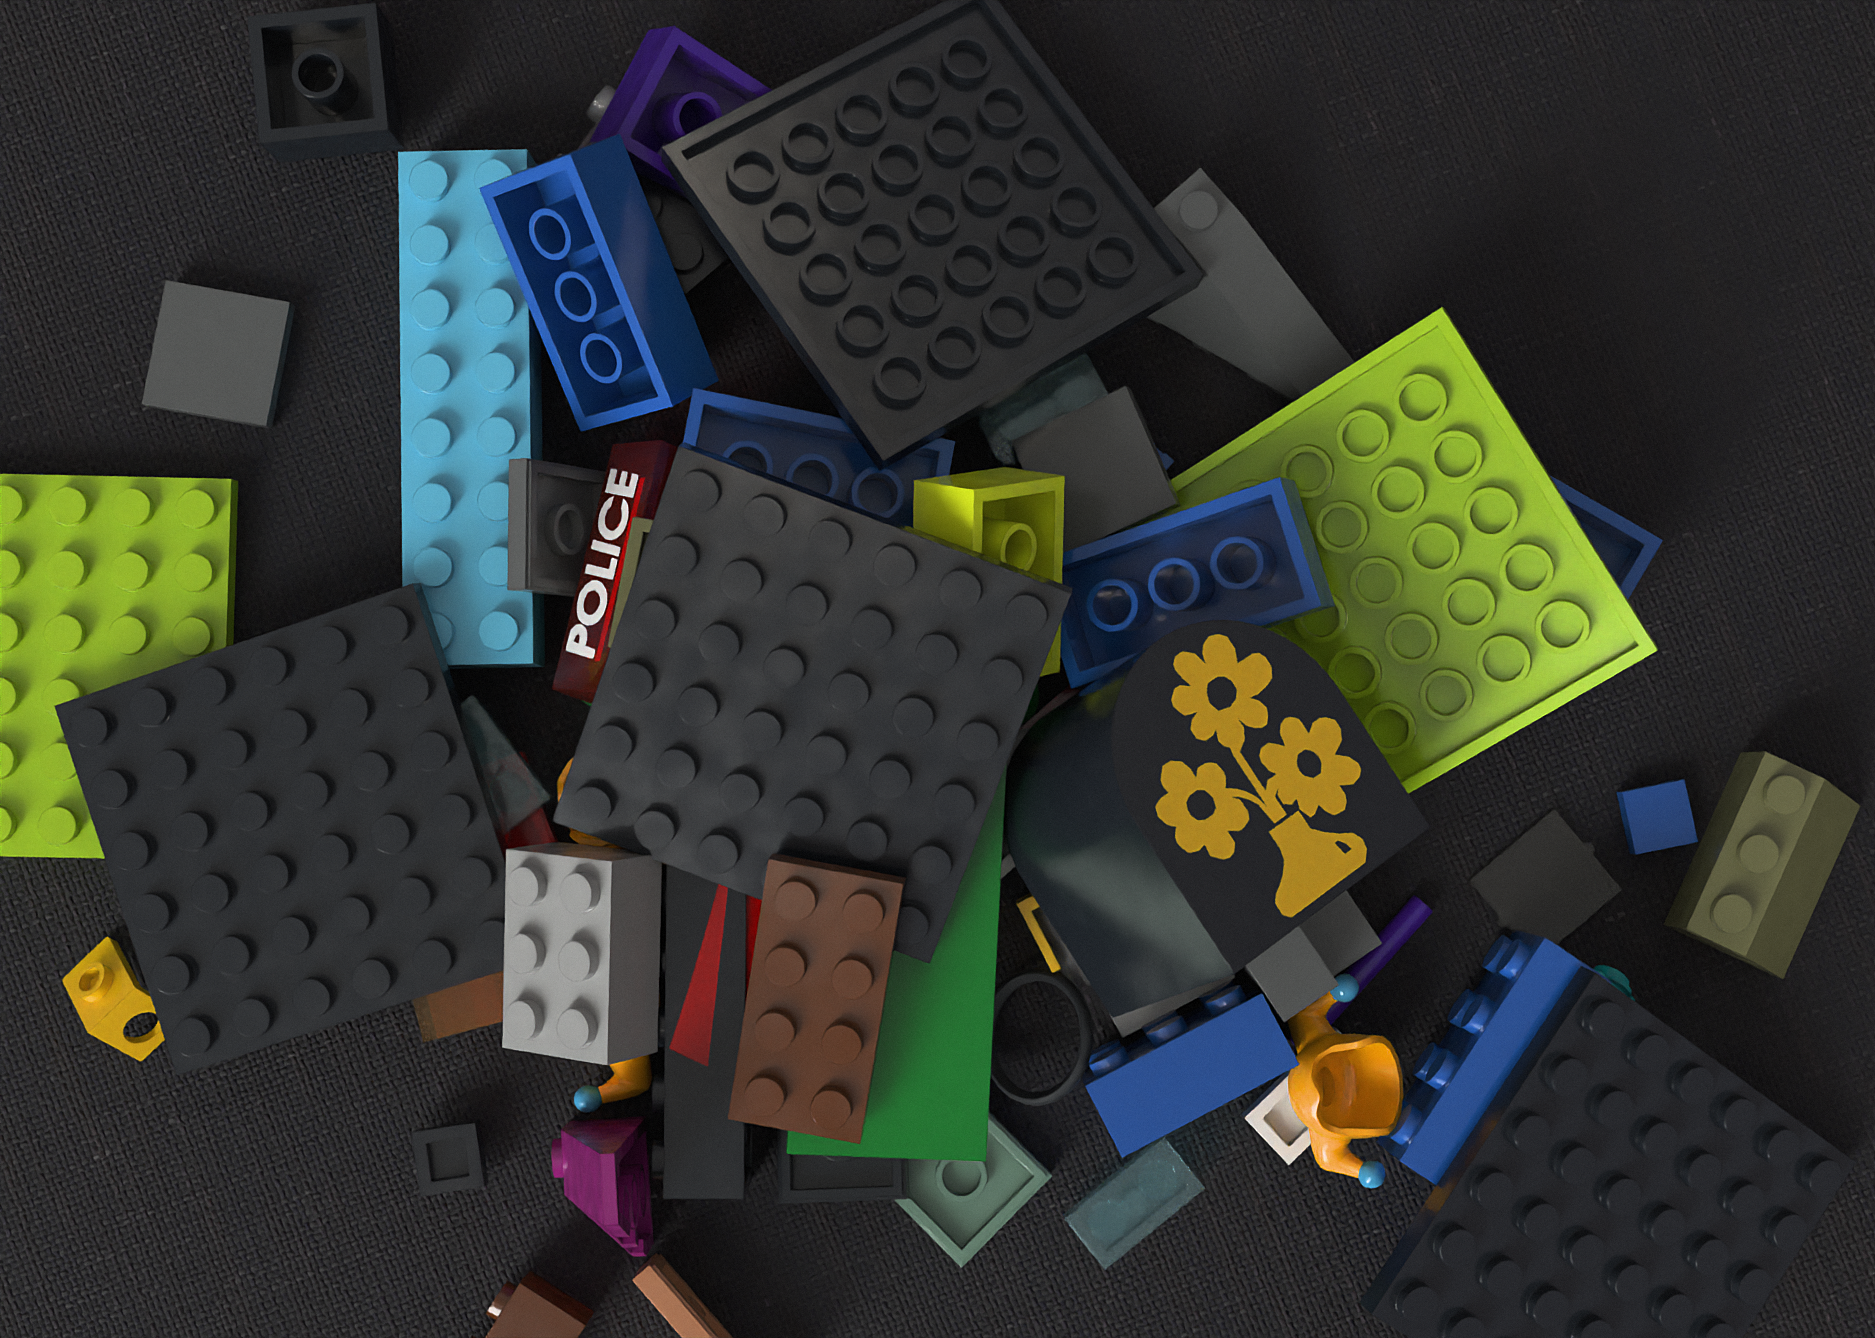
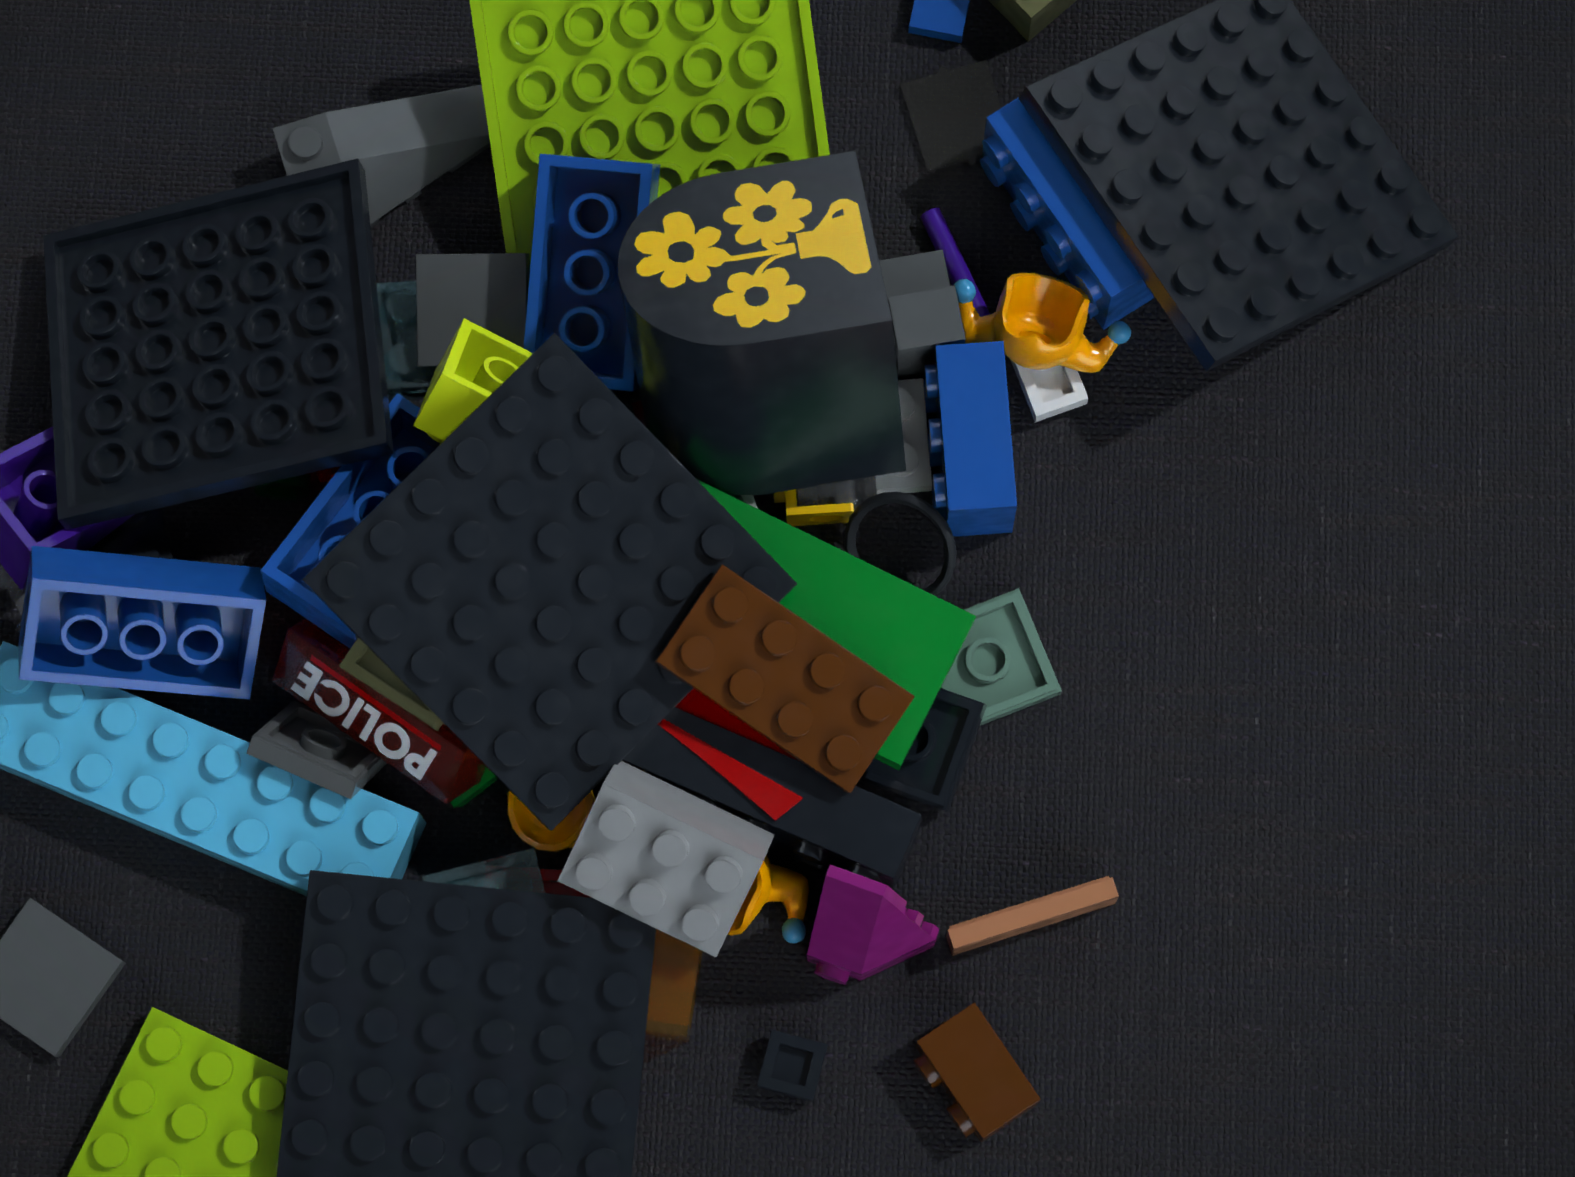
camera: 60 degrees left, 10 degrees down
(1133, 1202) = (1066, 532): clear light blue plate -> none

